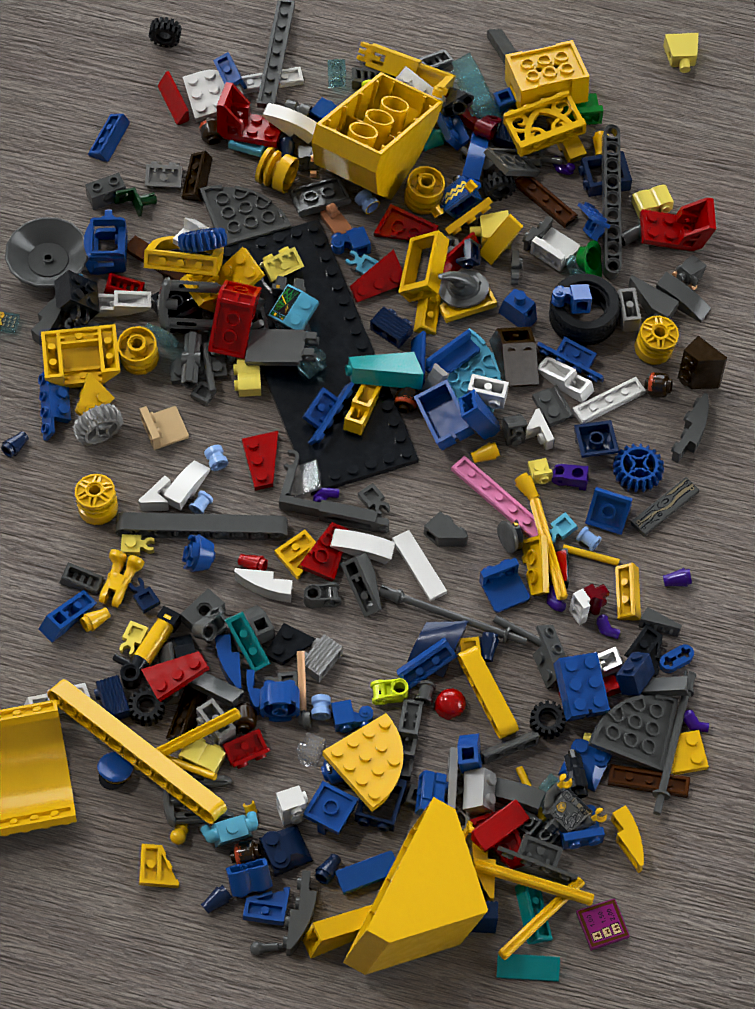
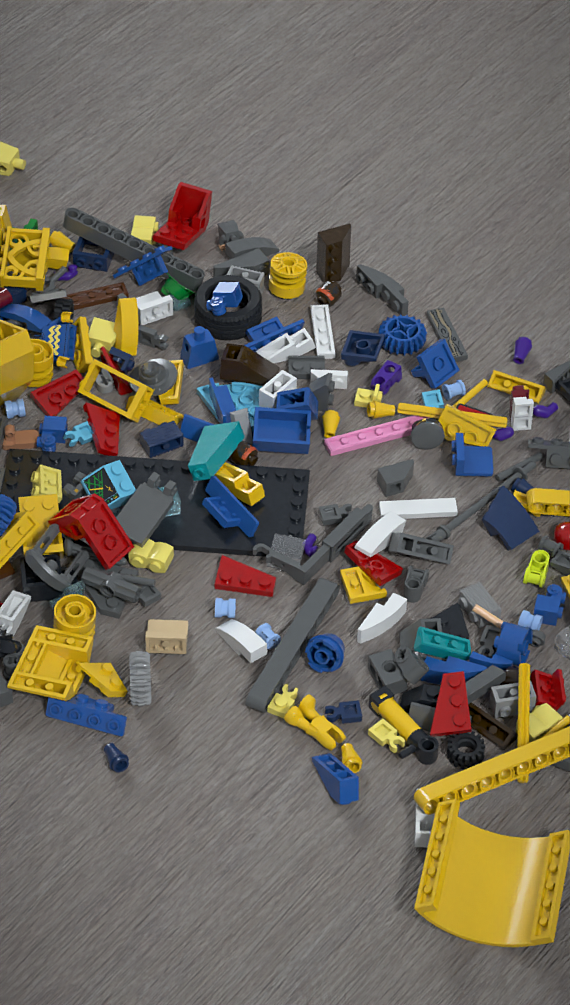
camera: 65 degrees left, 15 degrees down
(76, 570) = (293, 766): dark grey slope -> none
(96, 499) = (223, 707): yellow wheel -> none
(112, 697) = (441, 767): dark blue brick -> none
(113, 770) = (522, 797): blue piece -> none
(153, 499) = (243, 667): white slope -> none
(253, 562) = (353, 619): red cone -> none
(427, 663) = (522, 532): blue slope -> none

